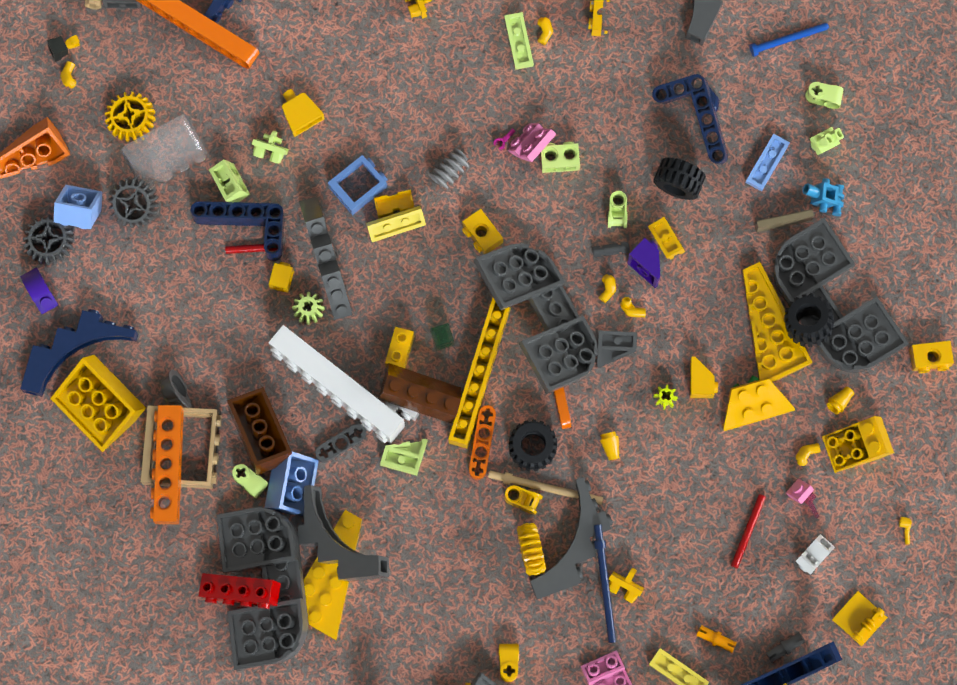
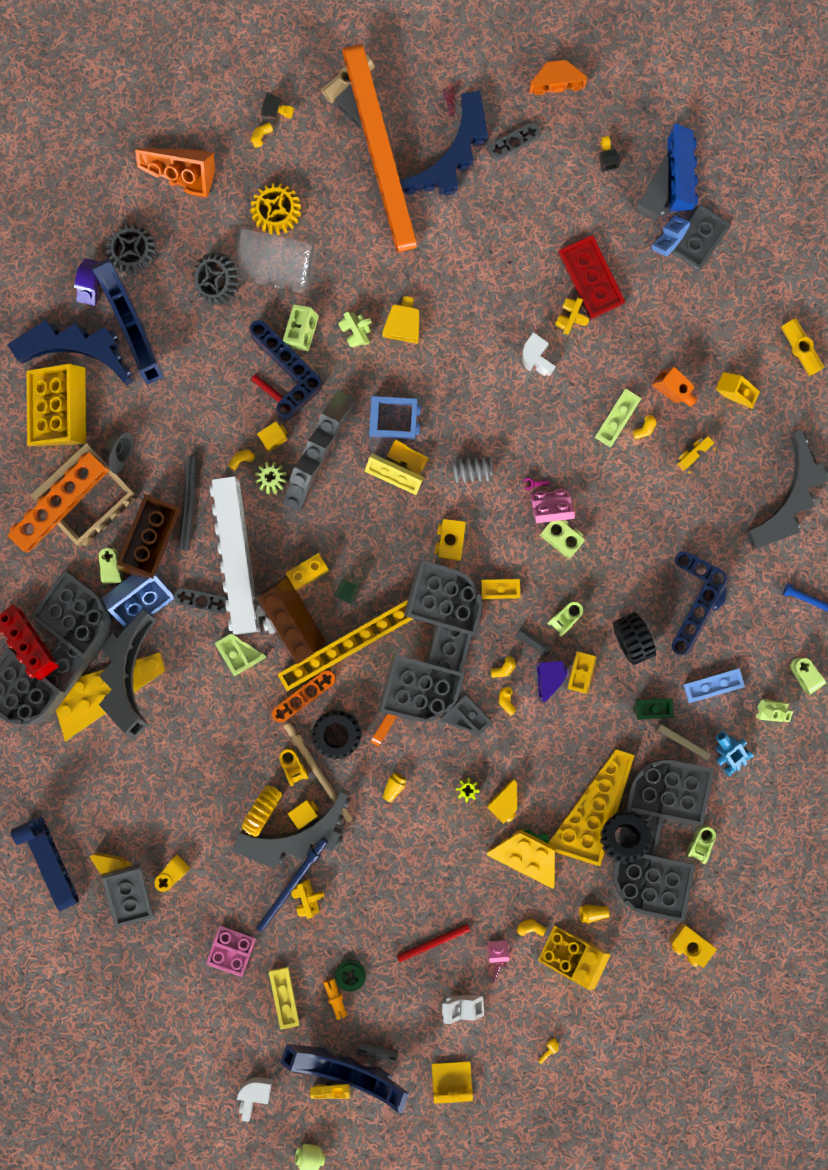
camera: 45 degrees right, 10 degrees up
(77, 207) = (172, 243): light blue brick -> none
(102, 292) = (129, 321): none -> dark blue arch
(262, 381) = (188, 503): none -> dark grey axle
(270, 314) = (244, 455): none -> yellow arm
(416, 53) = (532, 354): none -> white brick
(551, 234) = (500, 589): none -> yellow plate
(563, 524) = (304, 813): none -> yellow brick
(715, 603) = (352, 984): none -> dark green gear
(741, 216) = (654, 708): none -> dark green plate
(868, 280) = (701, 845): none -> yellowish green piece

